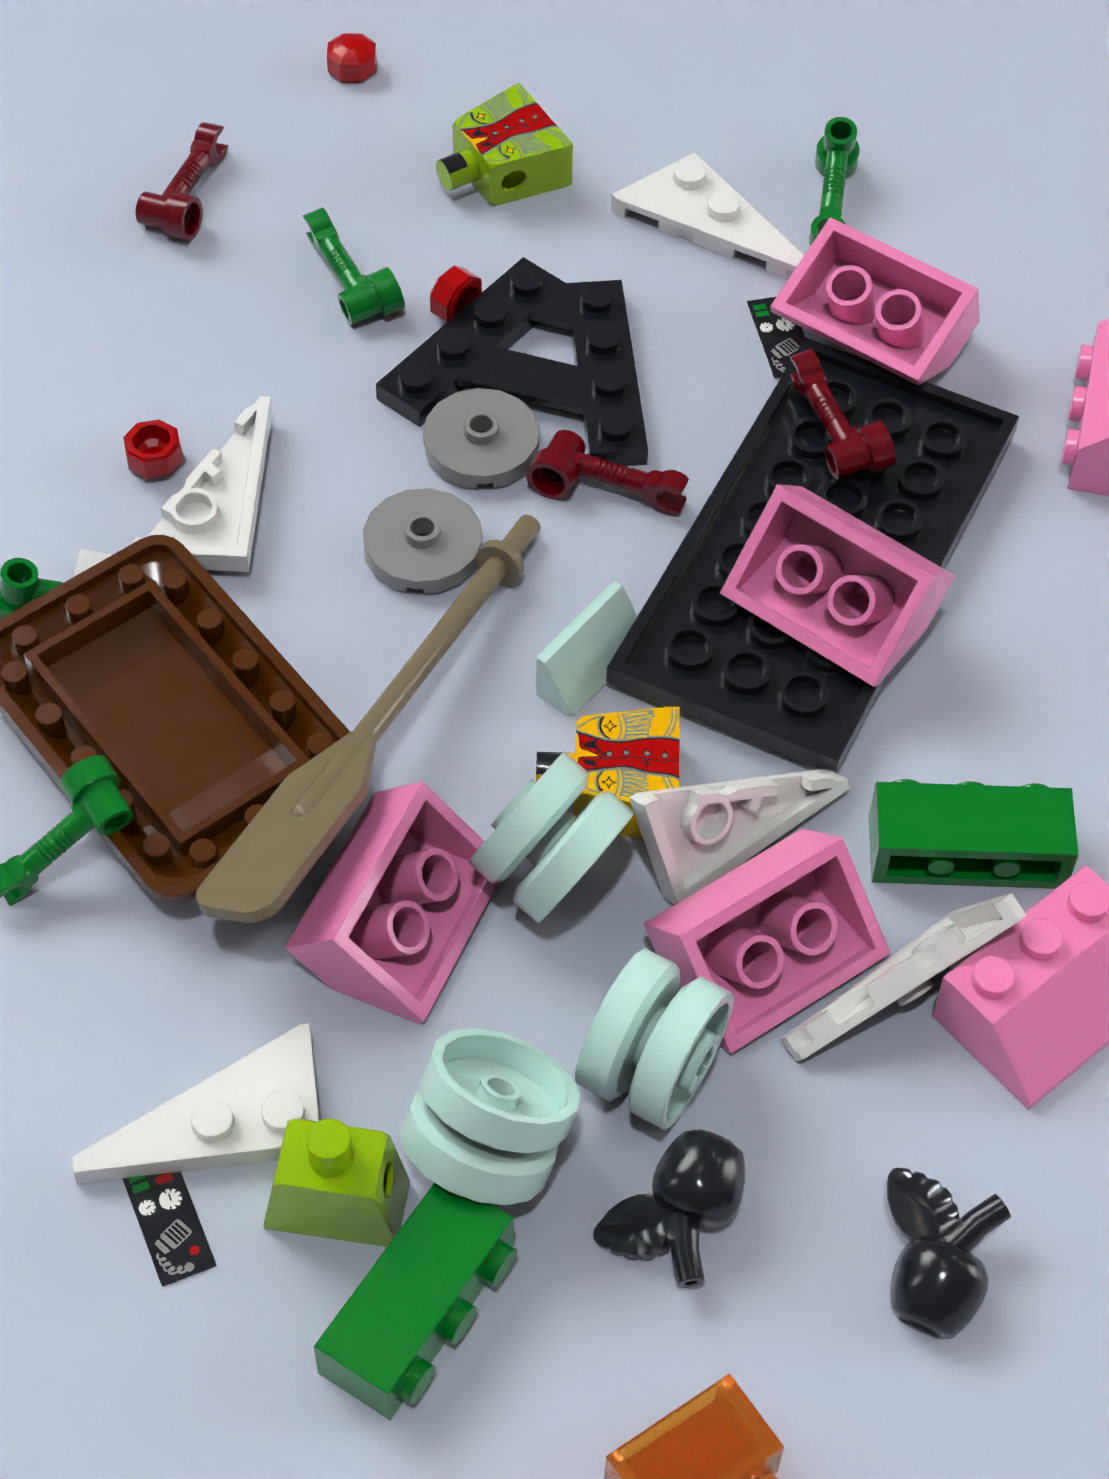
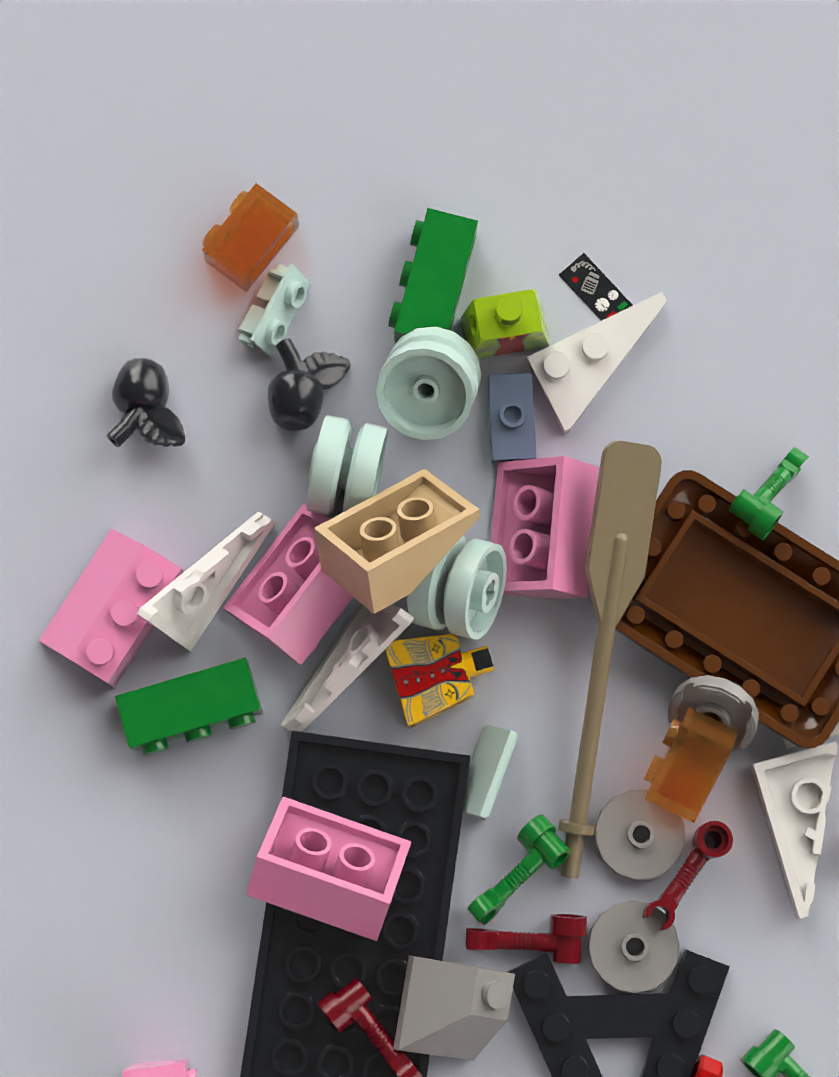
camera: 160 degrees right, 25 degrees up
(272, 610) = (720, 701): none -> light grey plate
(326, 563) = (690, 764): none -> clear orange piece
(341, 491) = (693, 864): none -> dark red brick
(379, 1068) = (511, 417): none -> sand blue plate
(552, 550) = (543, 847): none -> green brick
(617, 881) = (393, 539): none -> tan slope
(667, 1357) = (284, 292): none -> light aqua hinge
(724, 423) = (451, 1008): none -> light grey slope

